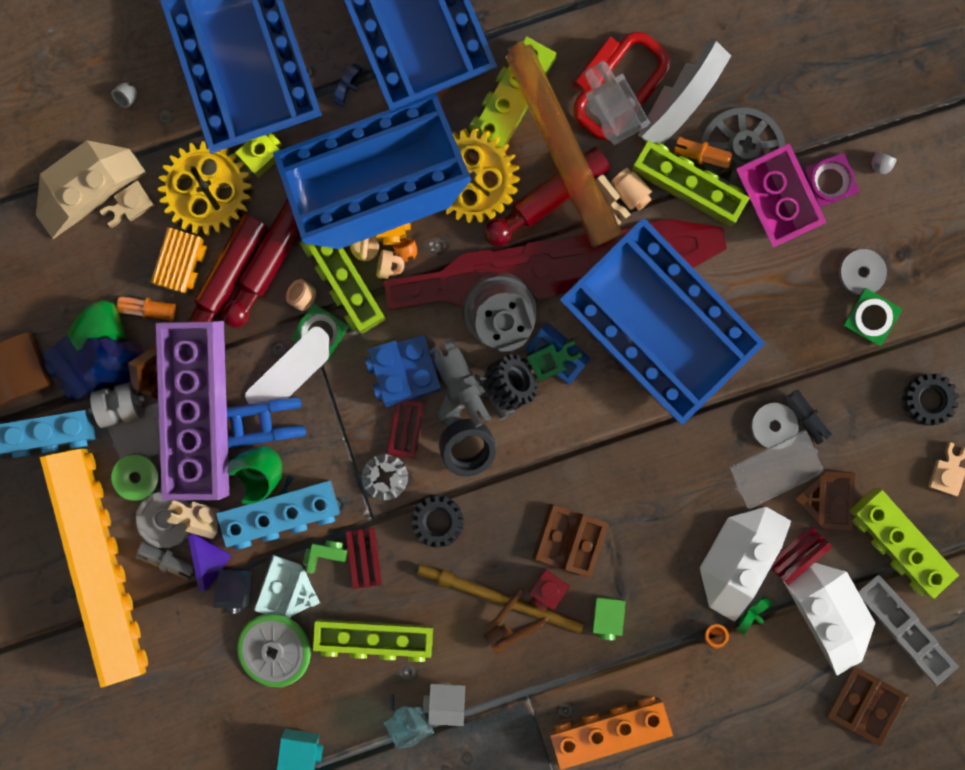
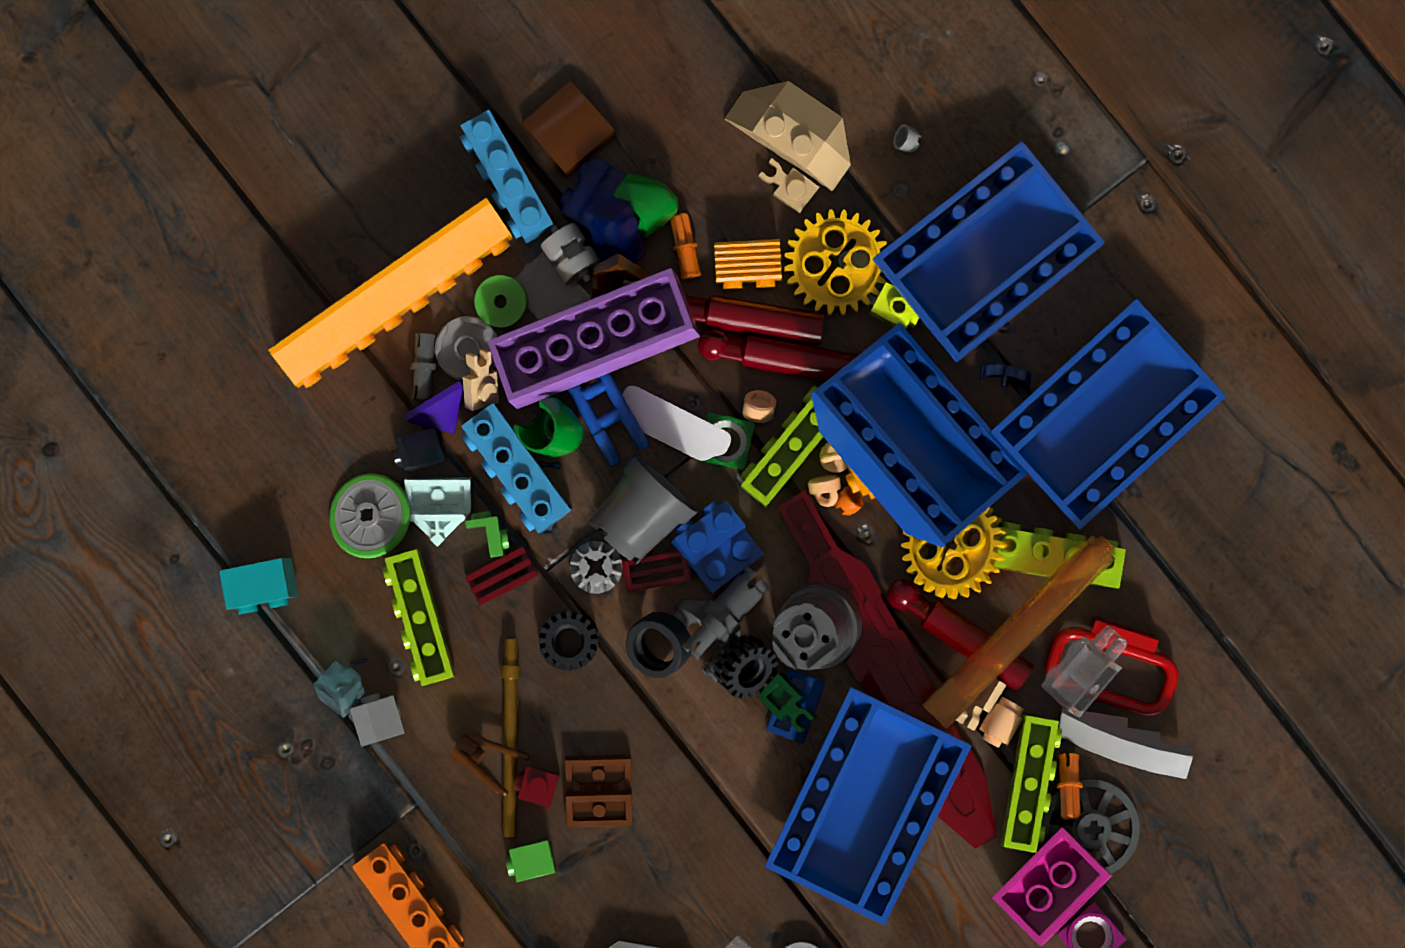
camera: 70 degrees right, 0 degrees up
(351, 422) = (641, 510): none -> dark grey piece

